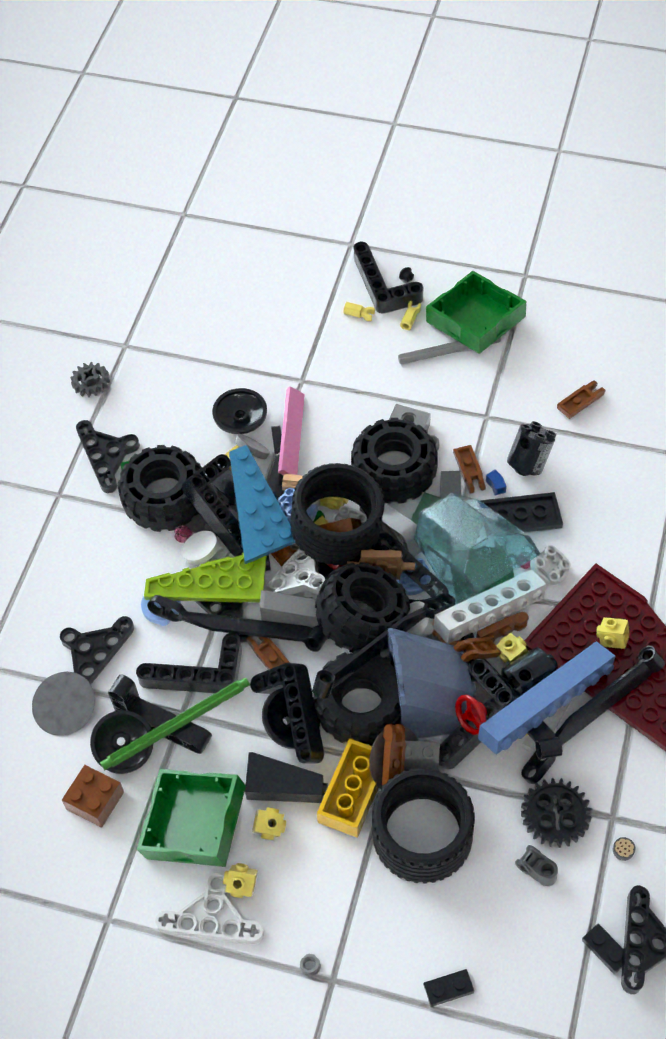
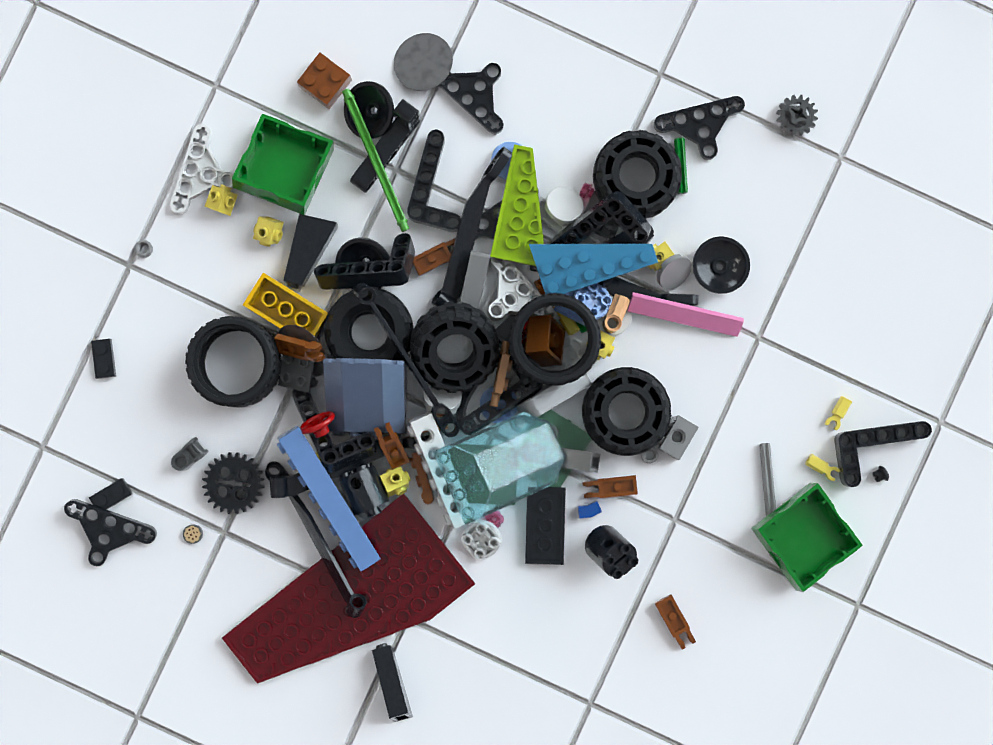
camera: 90 degrees right, 30 degrees up
(613, 633) = (388, 577): light yellow brick -> none

